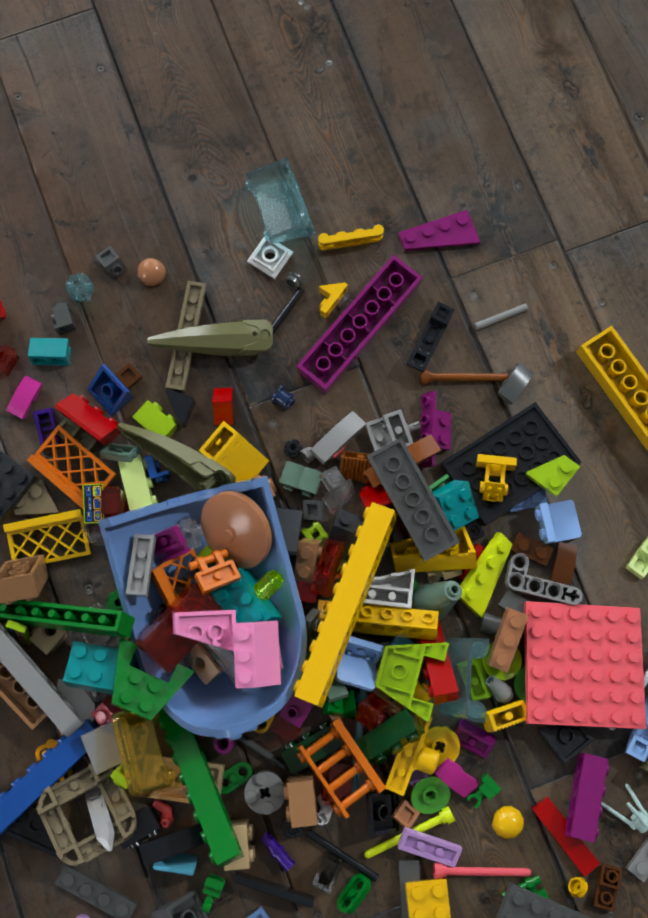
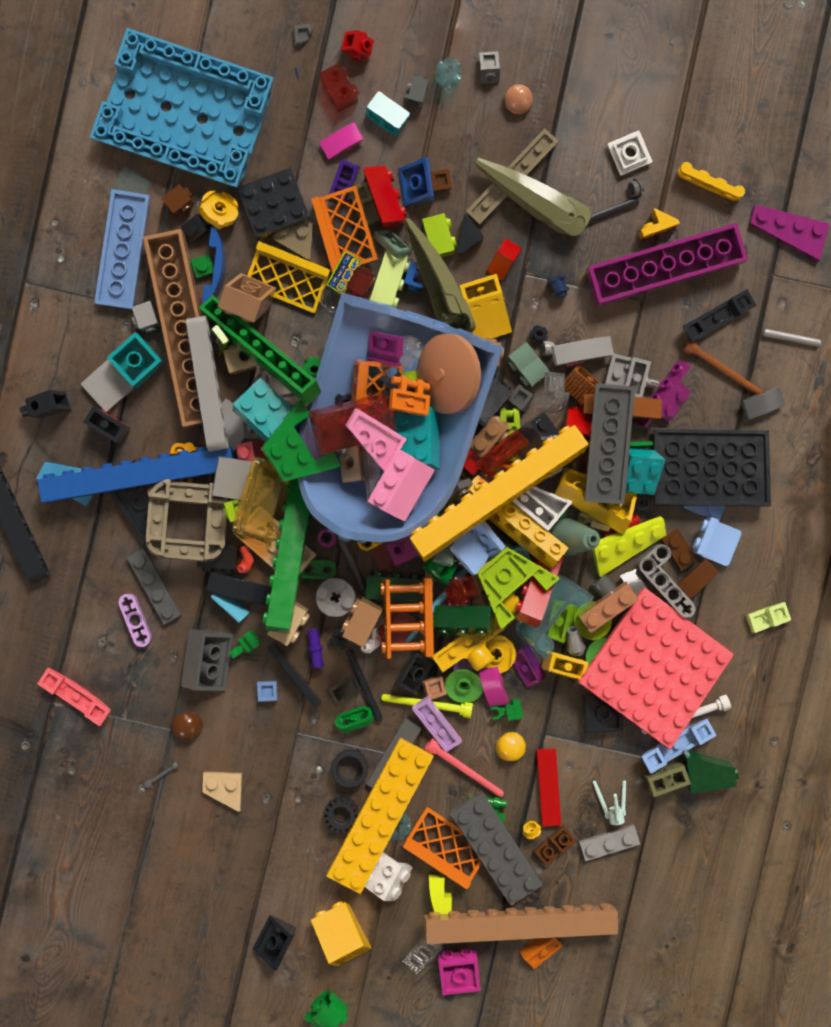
camera: 35 degrees right, 10 degrees up
(100, 818) = (195, 531): light grey piece -> none
(141, 565) = (353, 352): light grey plate -> none
(268, 585) = (446, 436): clear neon green brick -> none
(280, 202) = (670, 110): clear light blue windscreen -> none
(496, 467) = (697, 463): yellow tile -> none
(554, 474) = (740, 501): lime wing -> none
(586, 797) = (586, 768): magenta brick -> none

